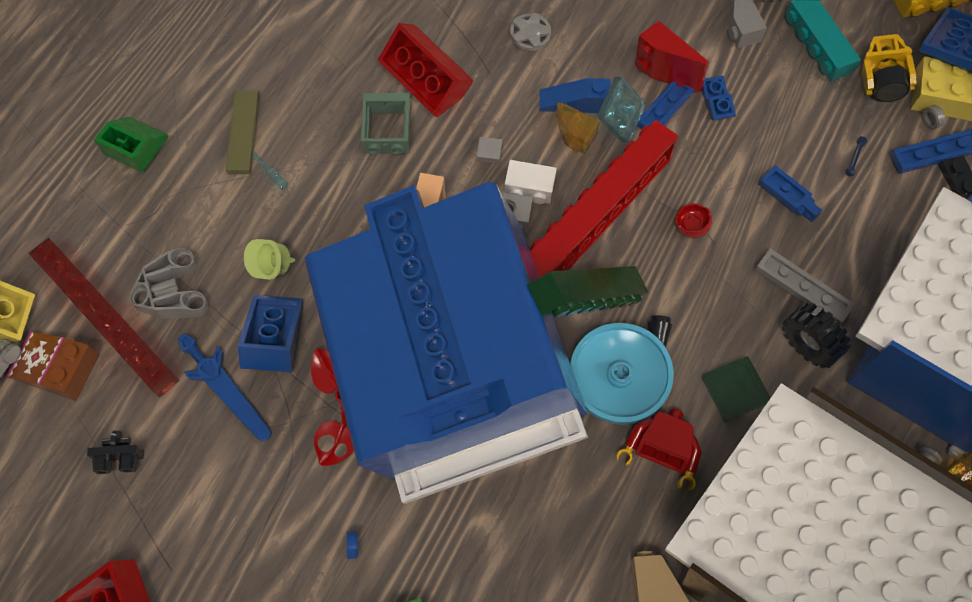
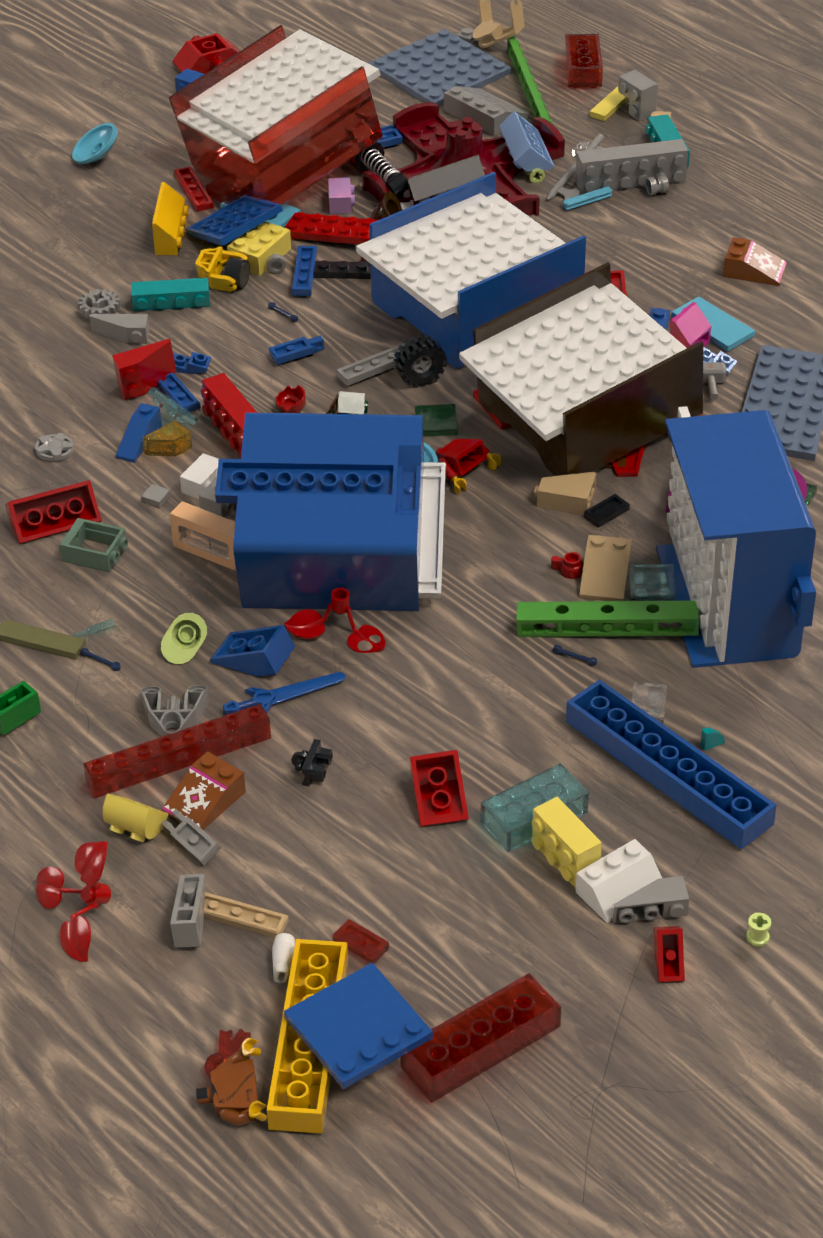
camera: 70 degrees left, 25 degrees down
(225, 212) = (114, 665): none -> dark blue hinge
(352, 544) = (457, 639): blue tile -> none

